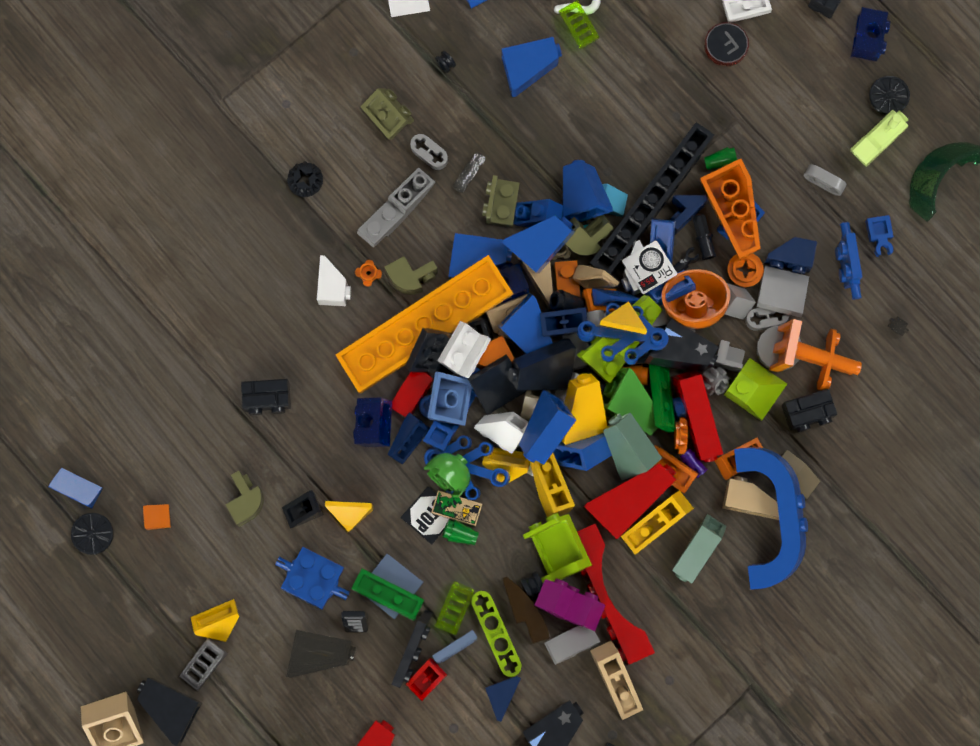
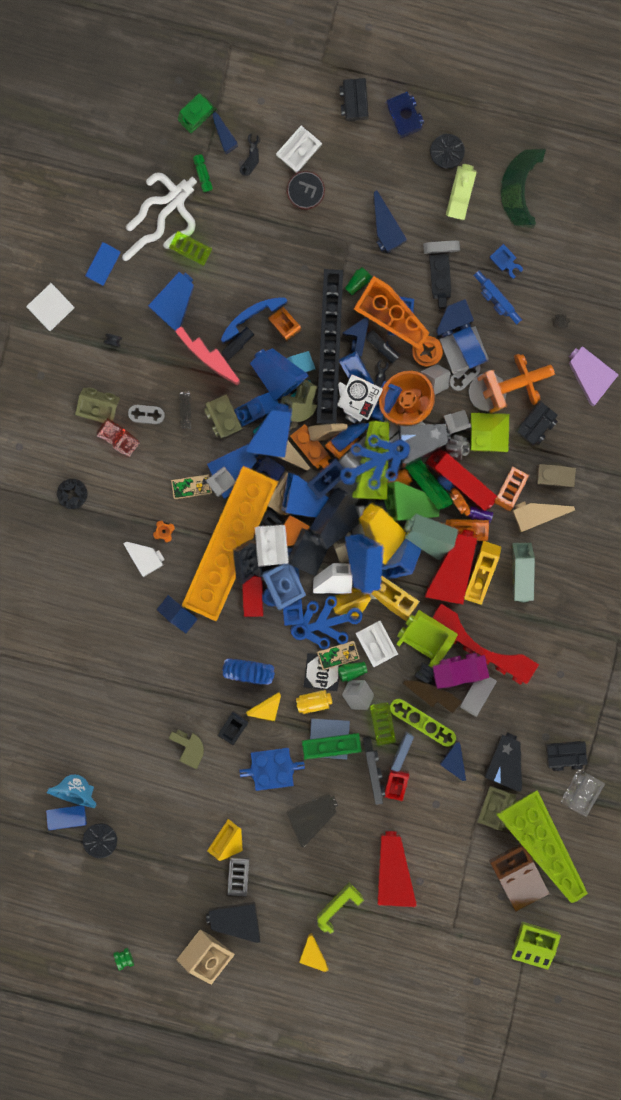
camera: 35 degrees left, 10 degrees up
(29, 669) = (123, 959): none -> green wheel
(102, 464) = (74, 790): none -> dark azure hat
(156, 516) = (136, 799): orange slope -> none
(265, 396) = (153, 666): black brick -> none
(325, 362) = (177, 614): none -> dark blue slope
(355, 621) = (322, 778): black slope -> none
(356, 461) = (248, 671): none -> blue gear
(379, 432) = (250, 639): clear blue brick -> none
(386, 154) = (118, 437): none -> clear red slope
(397, 208) = (152, 472): light grey slope -> none
(400, 538) = (314, 702): none -> yellow head
(406, 279) = (195, 519): olive brick -> none
(408, 438) = (272, 629): dark blue slope -> none
(424, 248) = (191, 487): none -> tile
(449, 472) = (318, 635): bright green cylinder -> none
(449, 561) = (358, 695): none -> light grey panel
(456, 256) = (221, 481): none -> light grey panel
(503, 522) = (376, 643): none -> white plate
(527, 135) = (212, 360): none -> coral slope
(563, 142) = (237, 343): none -> black axle
(563, 300) = (318, 462): black cone -> none
(616, 679) = (524, 699): tan slope -> none
(622, 155) = (285, 324): none -> orange slope
(623, 126) = (273, 305): none -> blue slope
(625, 319) = (370, 452): yellow slope -> none
(782, 132) = (387, 229): none -> dark blue slope
(790, 511) = (567, 504): blue arch -> none
(791, 290) = (469, 347): none -> blue slope
(804, 209) = (440, 278): none -> black hinge
(896, 398) = (591, 374): none -> lavender slope

